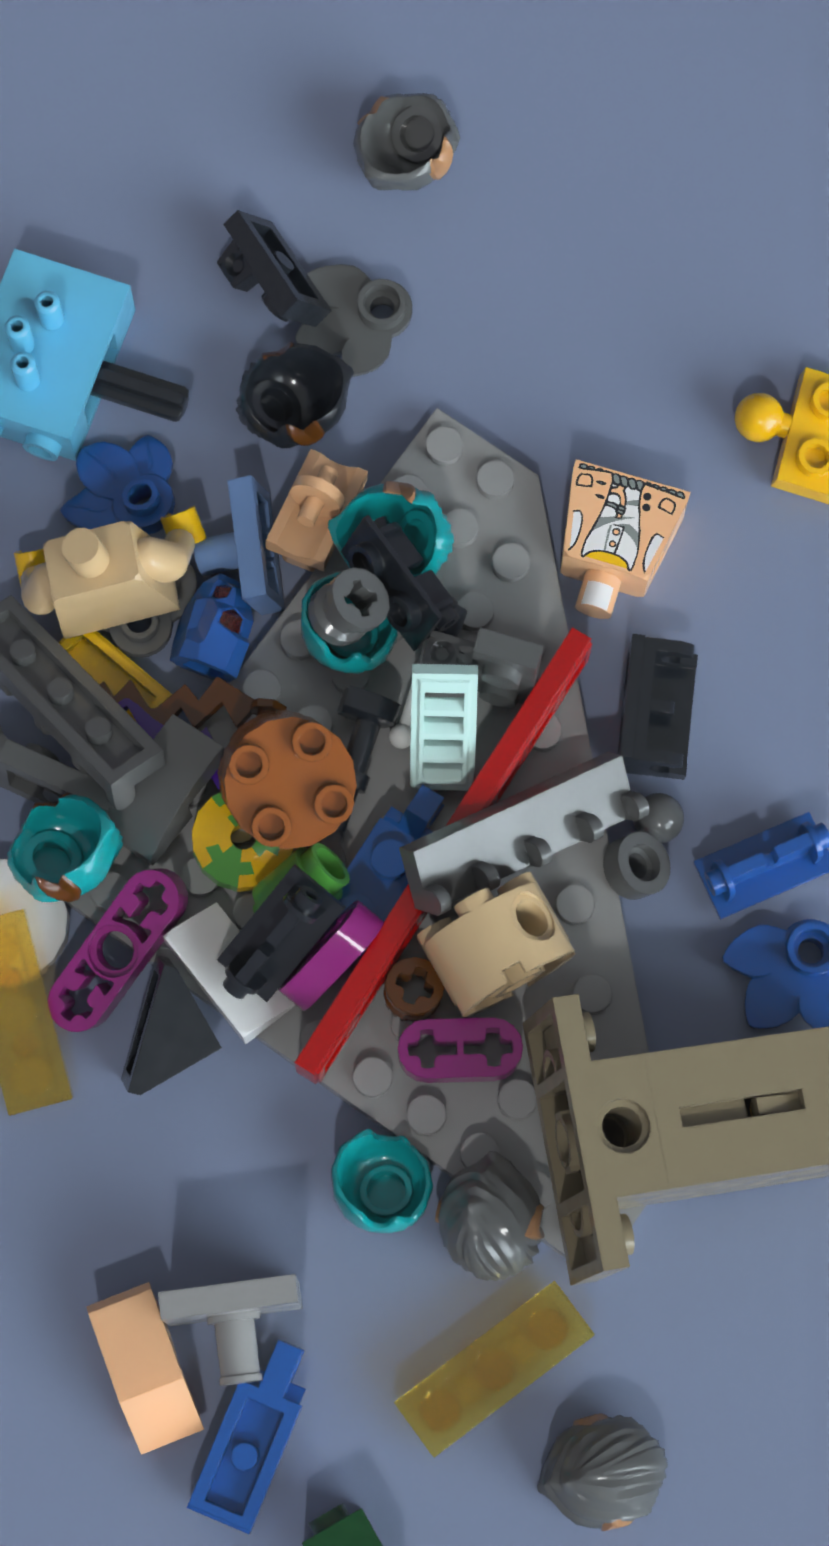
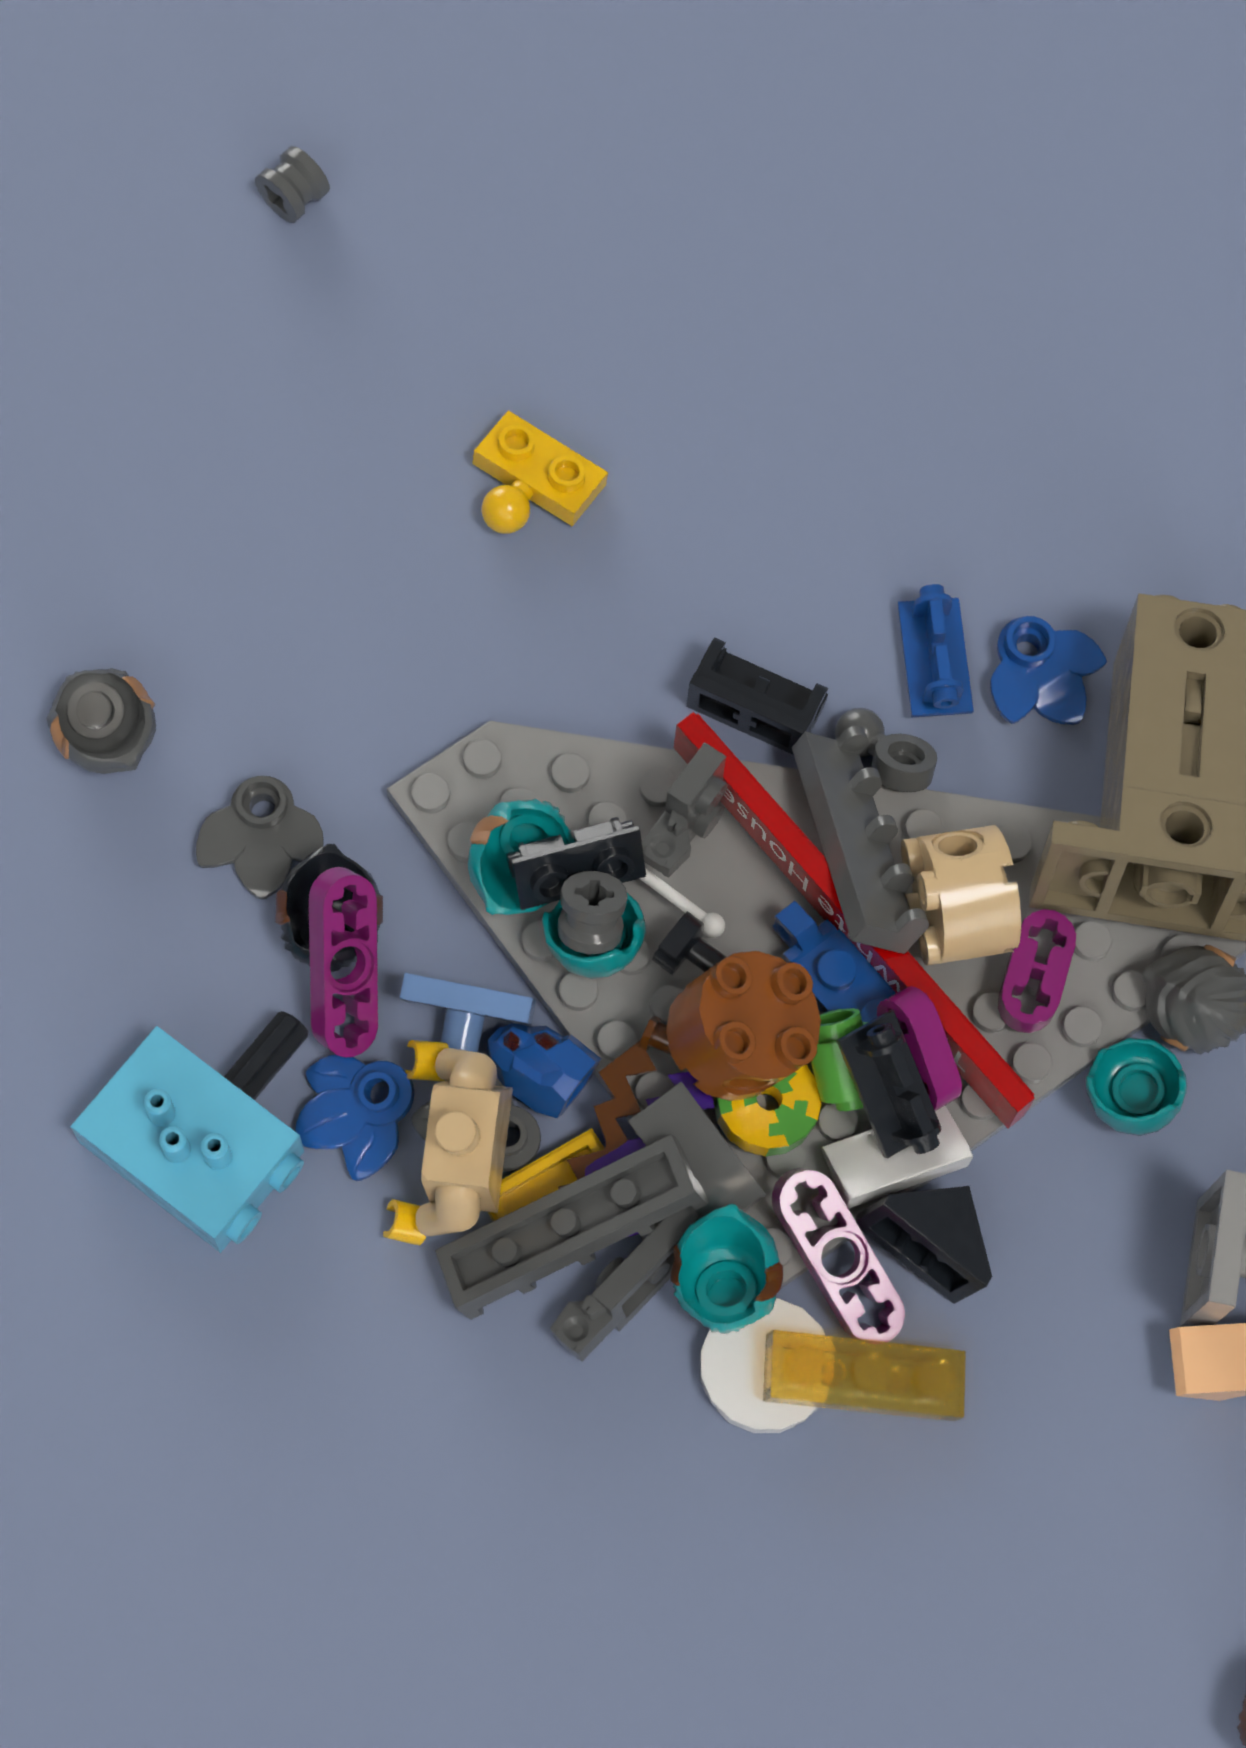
camera: 75 degrees left, 5 degrees down
(253, 396) = (358, 987): none -> magenta beam
(264, 258) = (162, 897): black hinge -> none
(314, 499) = (459, 927): light nougat hips -> none
(394, 994) = (963, 974): reddish brown bush -> none
(446, 744) = (740, 879): light aqua slope -> none
(616, 534) = (576, 671): torso -> none

